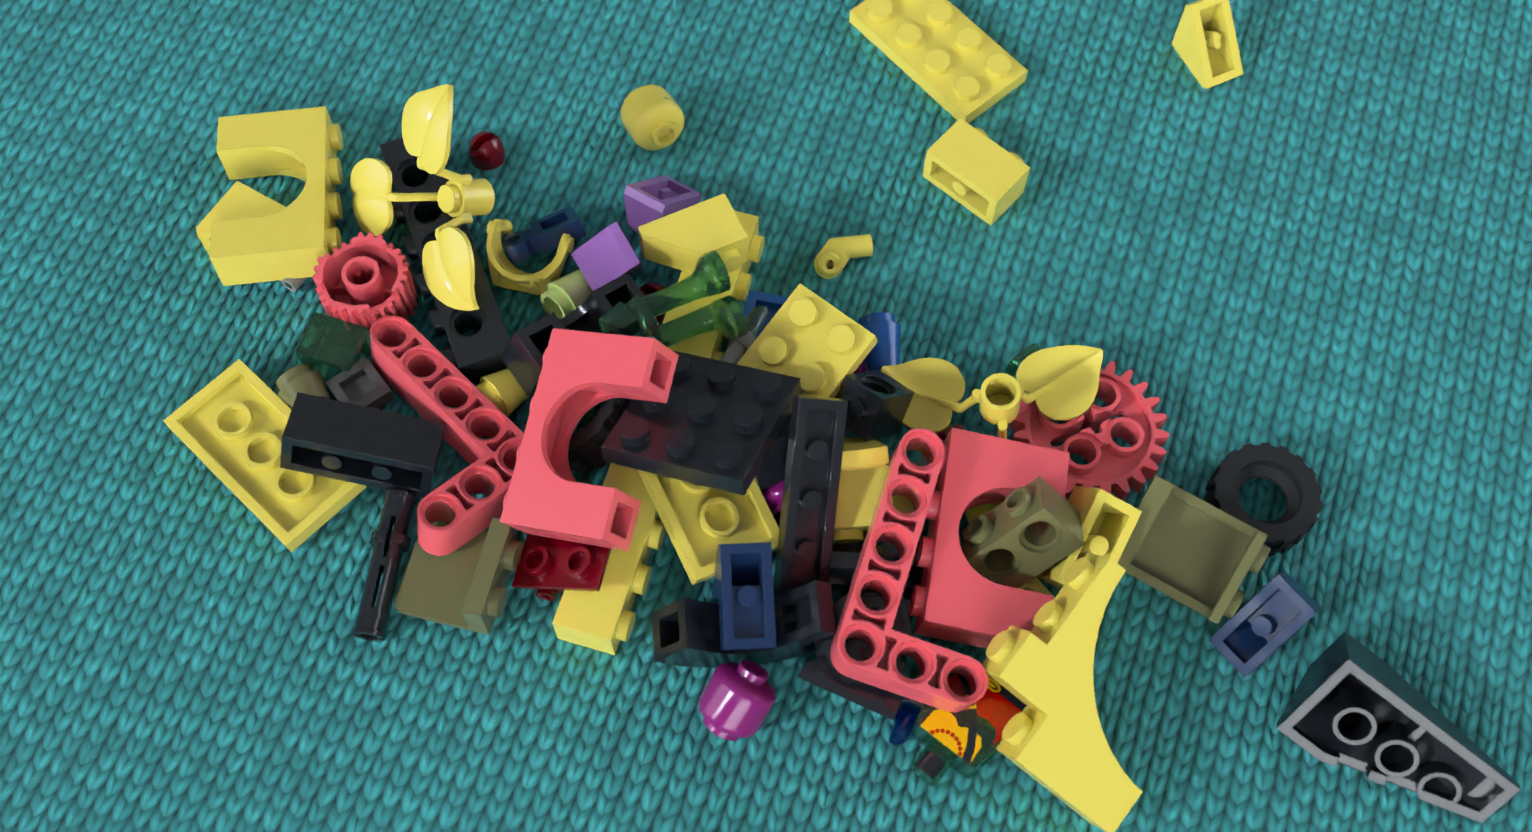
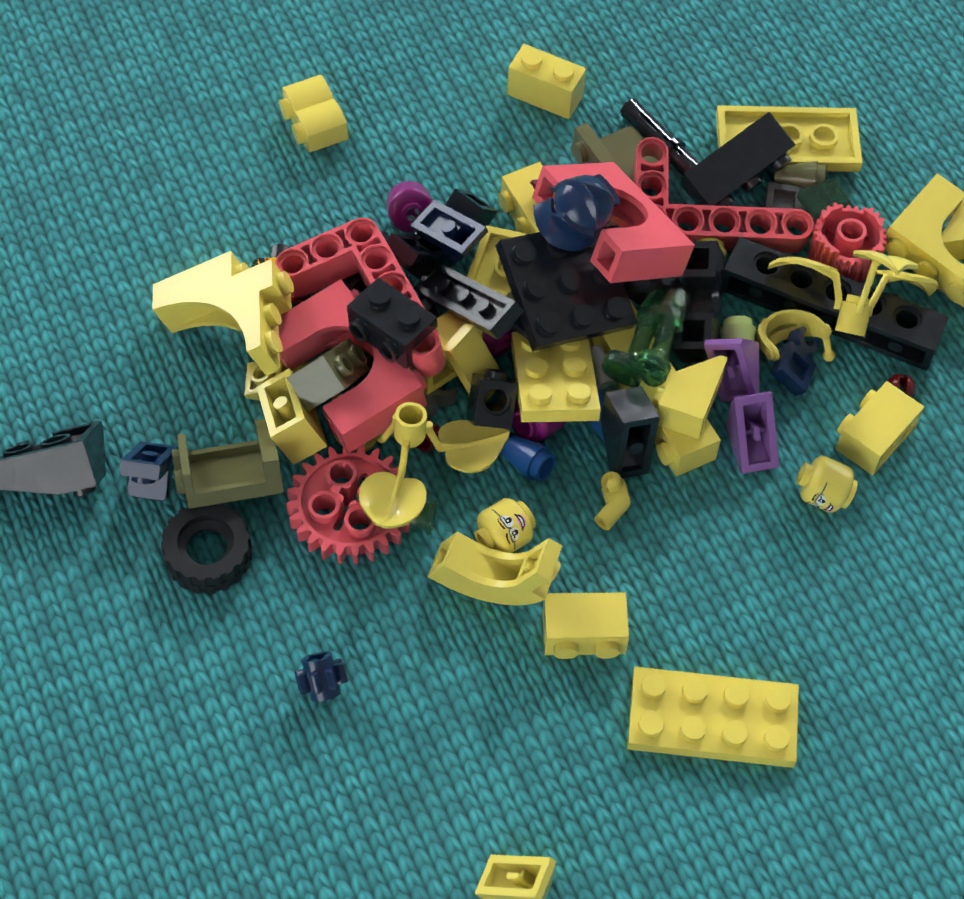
camera: 135 degrees right, 5 degrees down
(420, 740) = (546, 81): none -> light yellow brick
(550, 125) = (878, 427): none -> light yellow brick
(634, 421) = (582, 210): none -> dark blue helmet
(776, 268) = (629, 431): none -> black slope
(935, 495) = (389, 322): none -> black bracket
(969, 293) = (505, 526): none -> light yellow head
(1013, 261) = (494, 574): none -> light yellow arch
(1235, 300) = (321, 676): none -> dark blue gear

